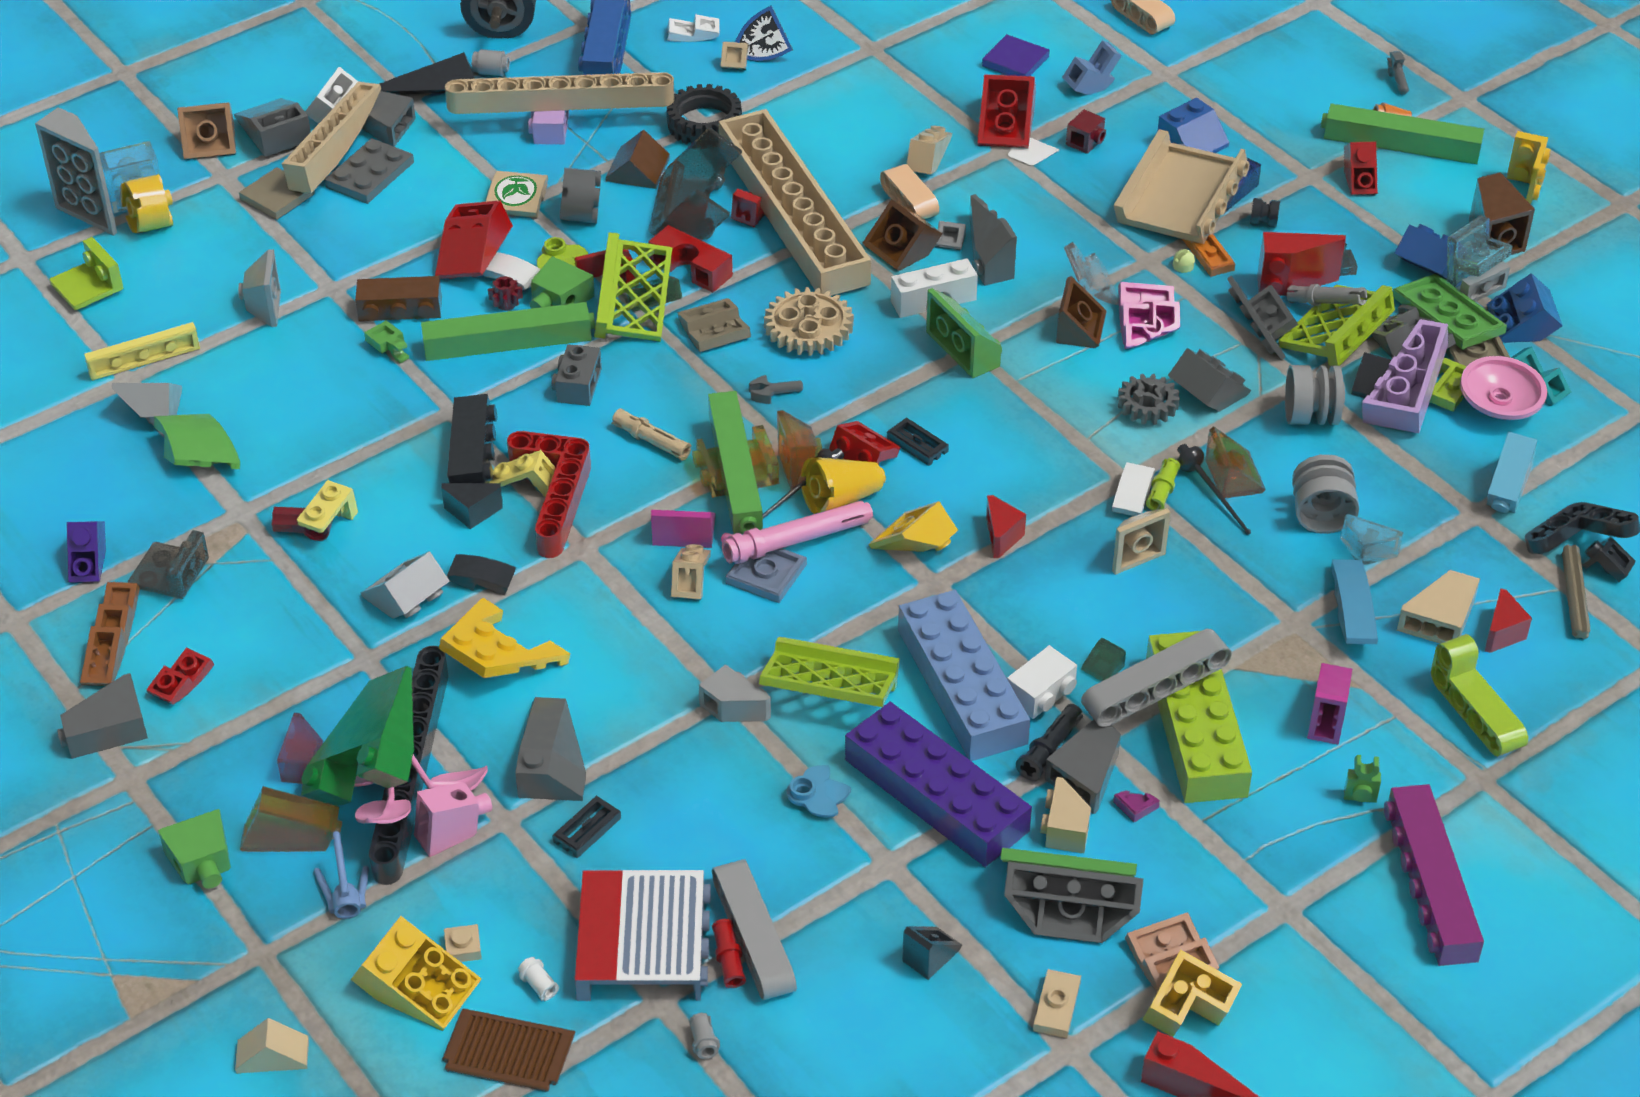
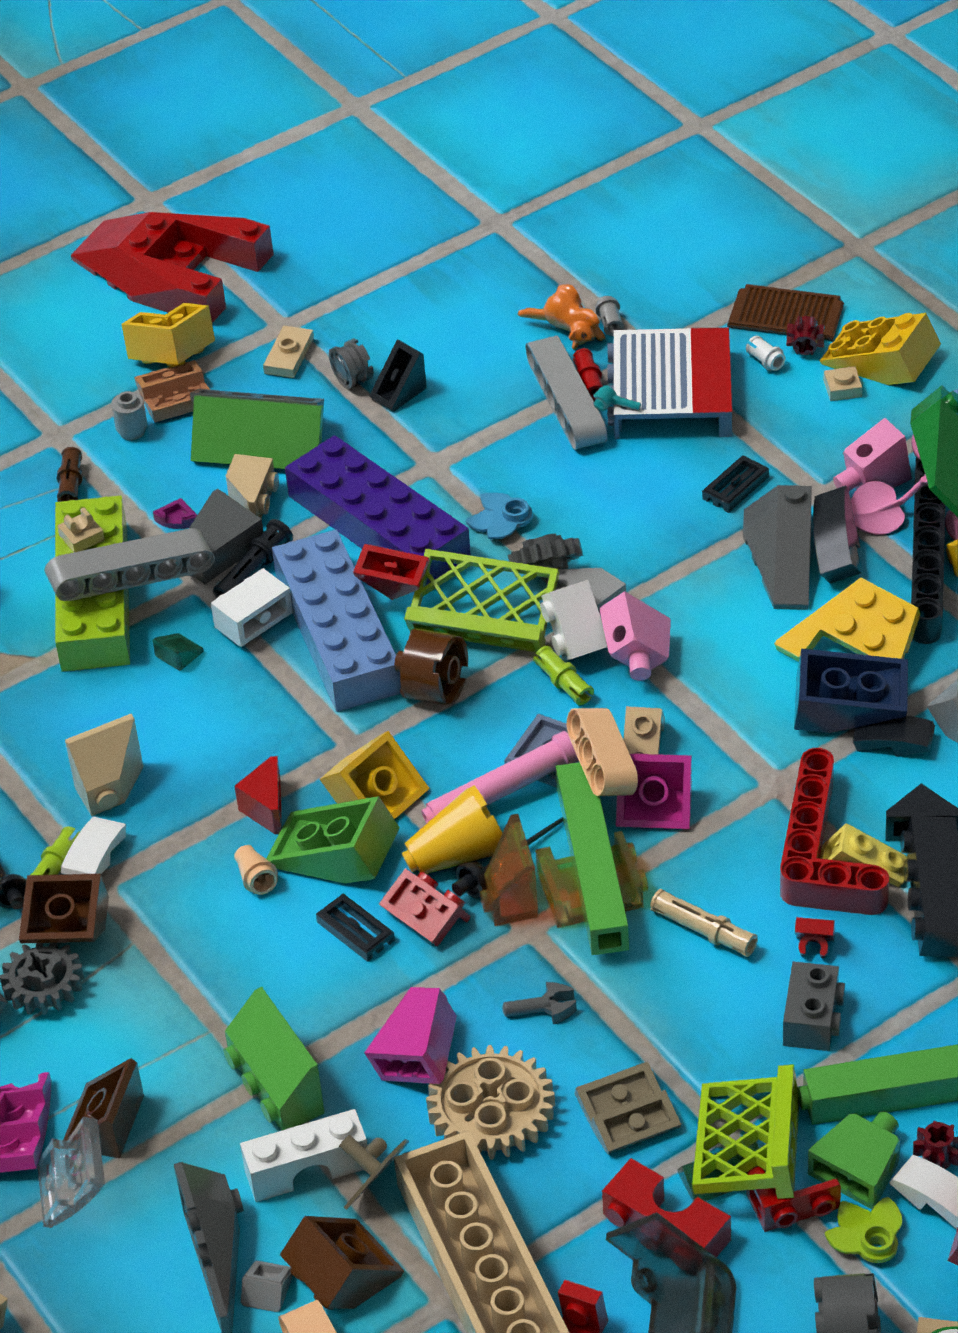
camera: 175 degrees left, 0 degrees up
(493, 989) = (805, 335): none -> dark red gear
(500, 740) = (836, 535): none -> black slope
(514, 589) = (848, 690): none -> dark blue slope
(568, 422) = (814, 930): none -> red tile
(689, 640) = (636, 634): none -> bright pink torso
(708, 881) = (606, 396): none -> teal hand
(723, 504) = (601, 752): none -> light nougat beam
(746, 647) = (574, 620): none -> white brick
(751, 1027) = (567, 313): none -> orange animal
(755, 626) = (563, 675): none -> lime pin
(783, 709) = (548, 552): none -> dark grey gear
(861, 345) = (415, 1039): none -> dark pink slope
(871, 614) = (432, 666): none -> reddish brown brick
(877, 271) = (367, 1159): none -> dark tan shield
(911, 686) = (390, 570): none -> red slope
(933, 478) = (336, 841): none -> bright green slope
(984, 959) = (350, 363): none -> flat silver wheel
(1000, 473) = (256, 871): none -> light nougat cone
(1141, 429) = (63, 908): none -> reddish brown slope
(1209, 899) = (129, 415): none -> light grey brick
(1214, 718) = (80, 531): none -> tan tile
(1254, 841) = (69, 474): none -> reddish brown pin

